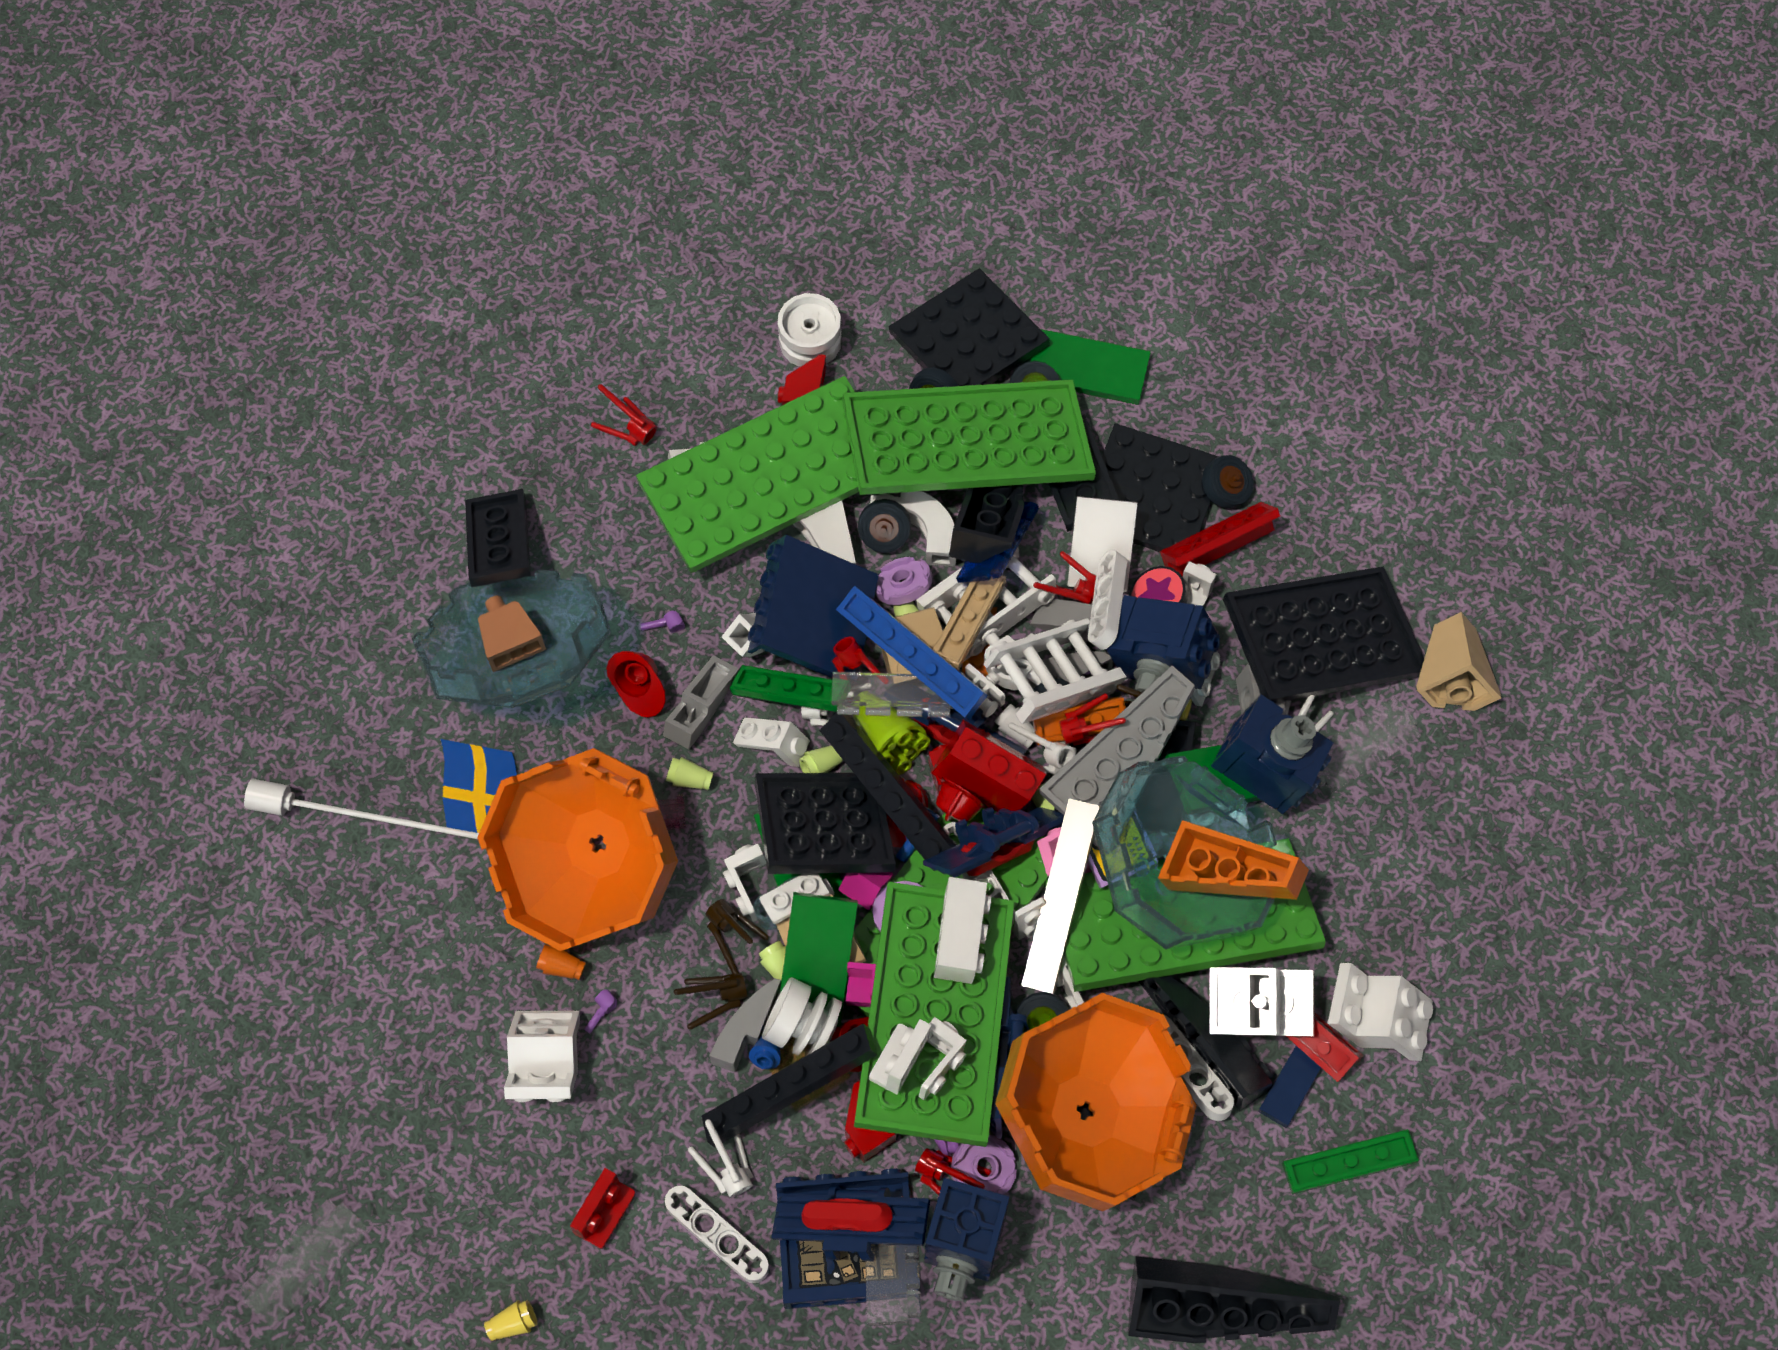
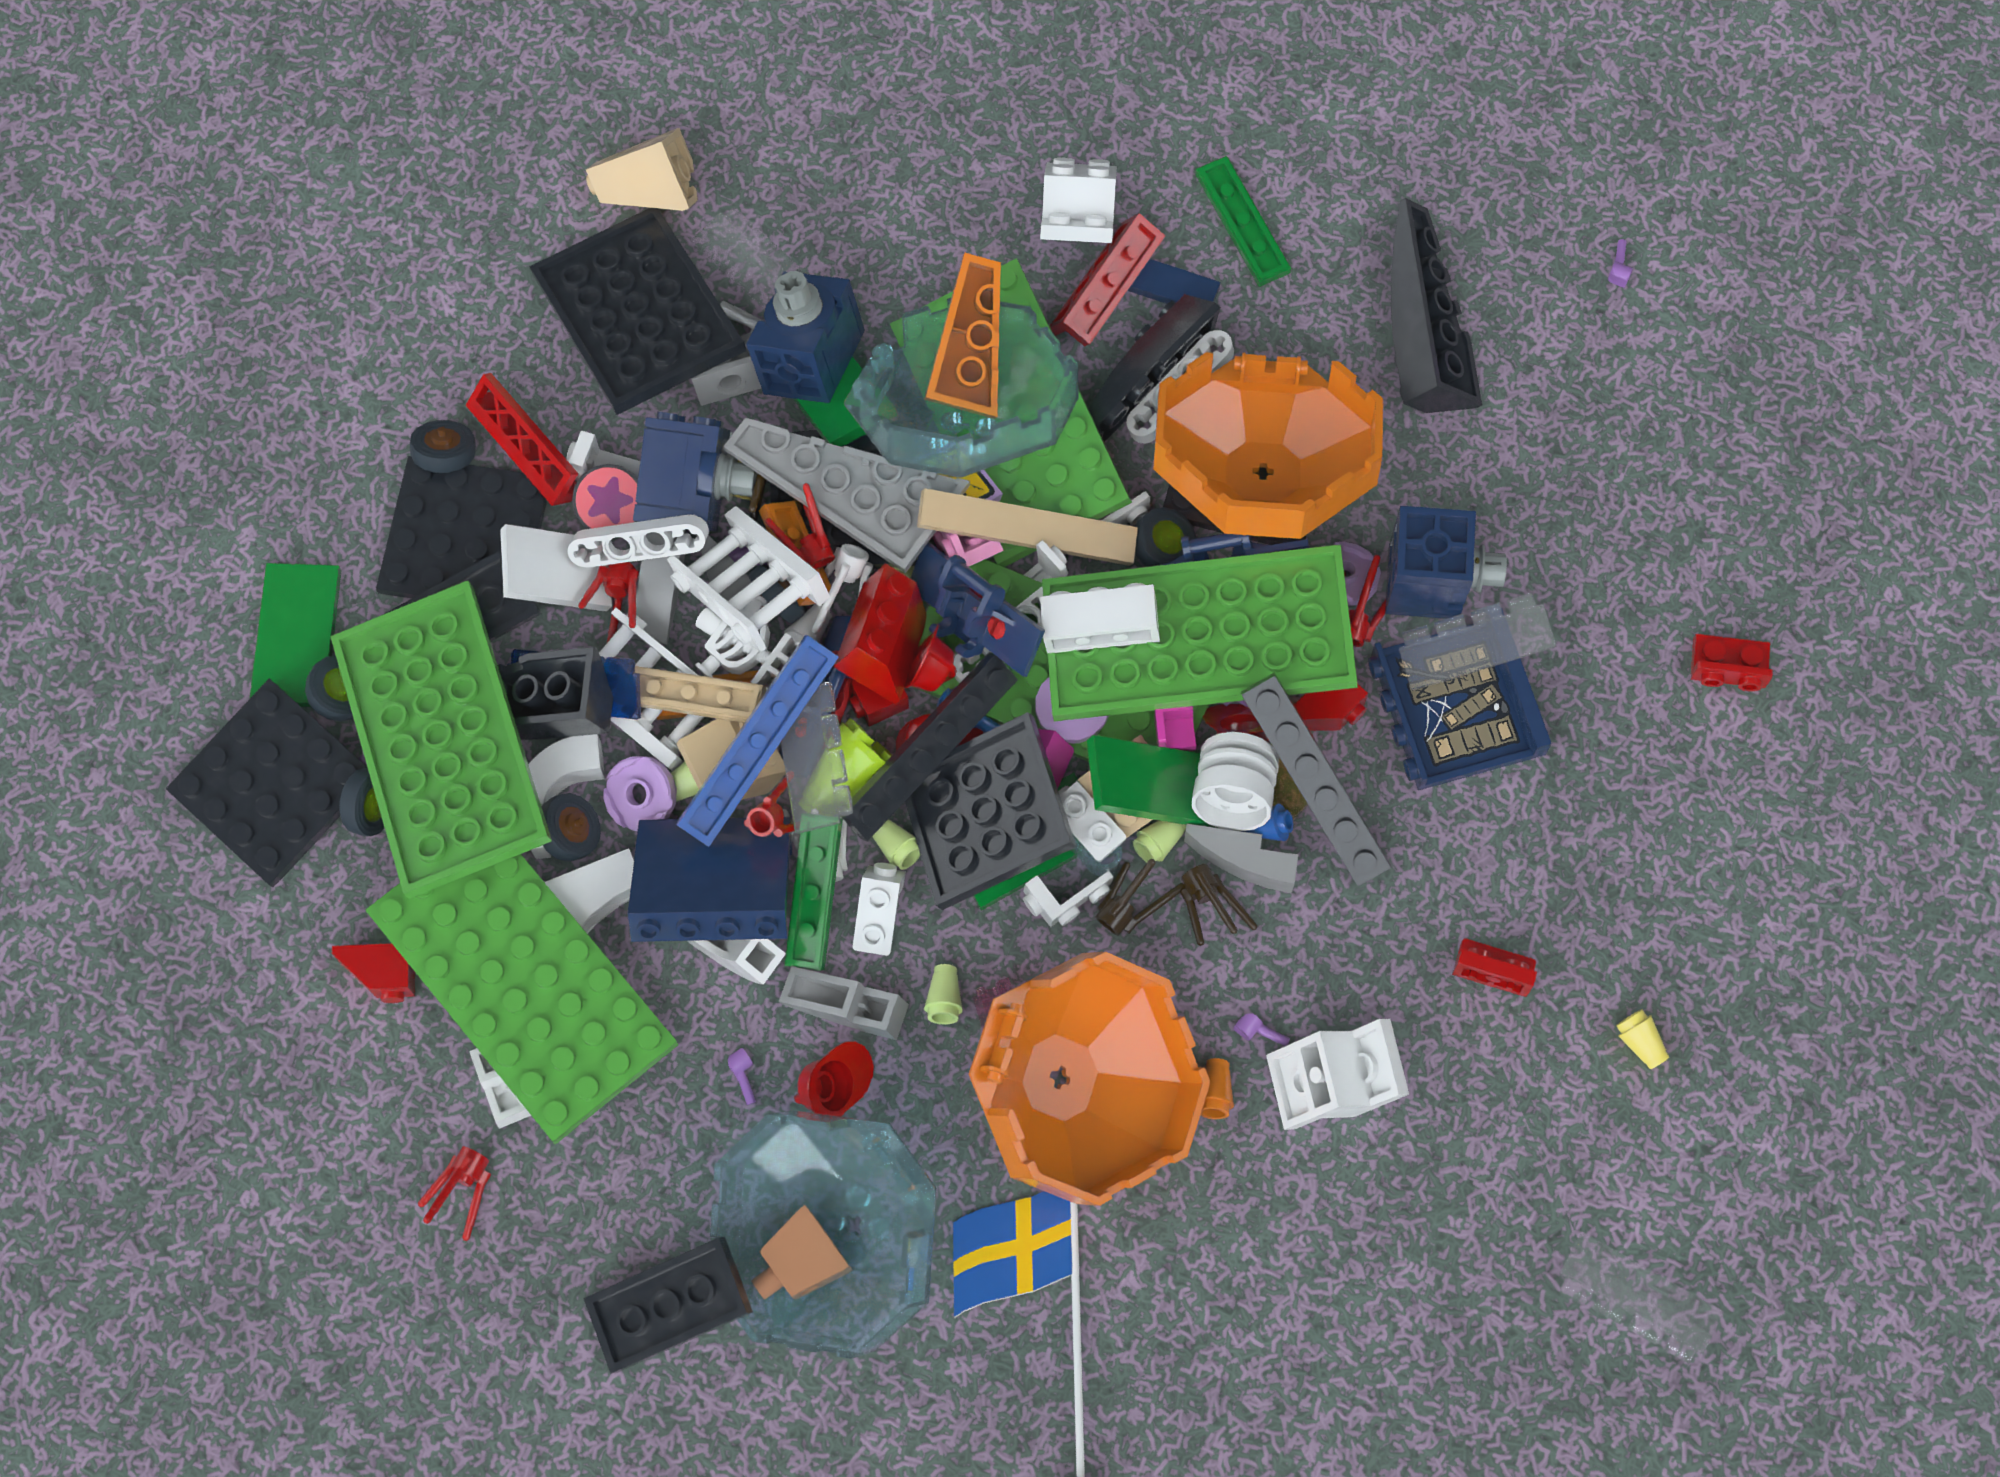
camera: 100 degrees left, 5 degrees up
(719, 1231) = (1485, 840): white beam -> none
(735, 1179) = (1419, 834): white plant -> none
(808, 328) = (273, 979): white wheel -> none
(851, 1220) = (1456, 685): dark blue piece -> none
(900, 1056) = (1273, 642): white bracket -> none
(949, 1042) = (1247, 591): white bracket -> none
(1261, 1001) = (1107, 304): white bracket -> none

